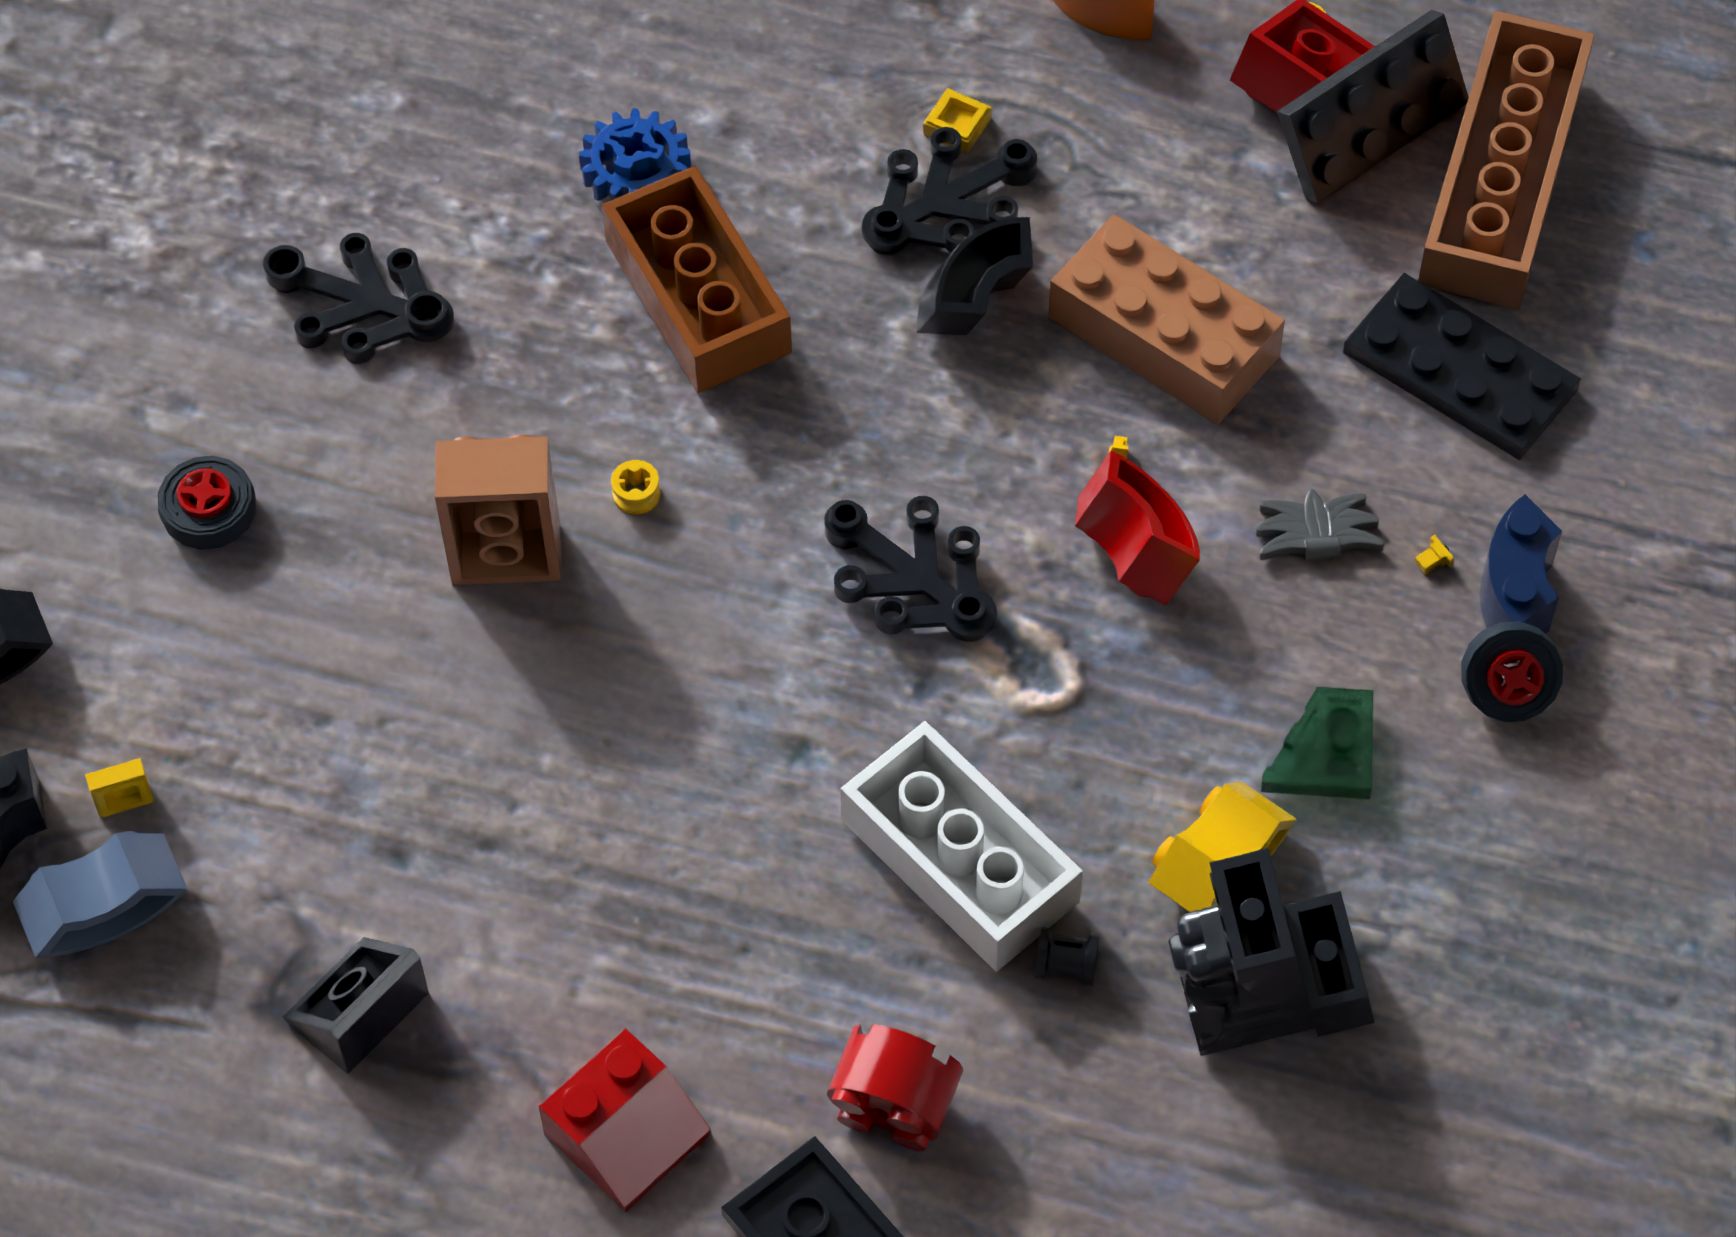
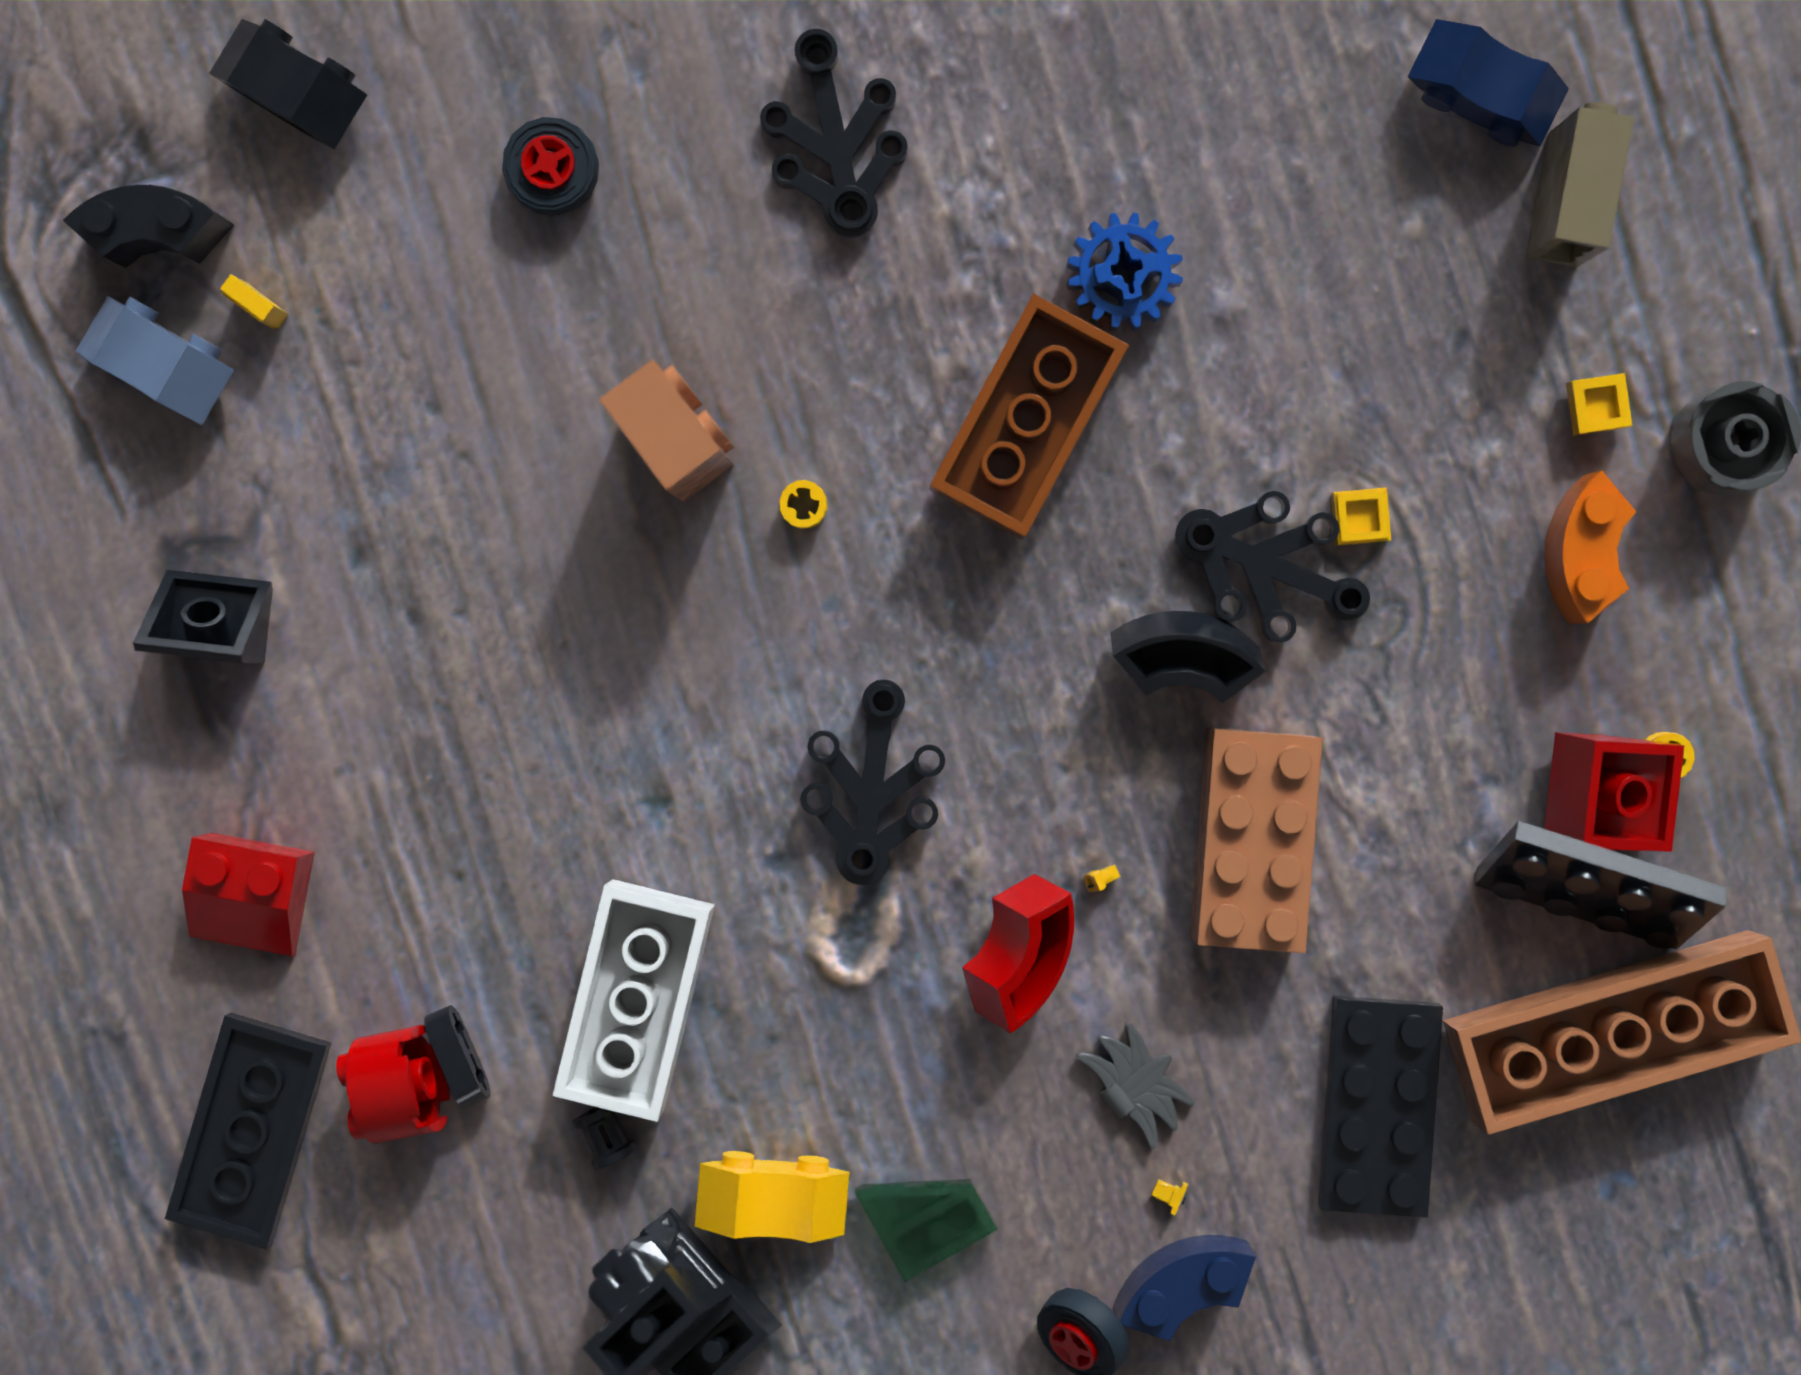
camera: 60 degrees right, 30 degrees up
(938, 1030) = (457, 1056): none -> black beam

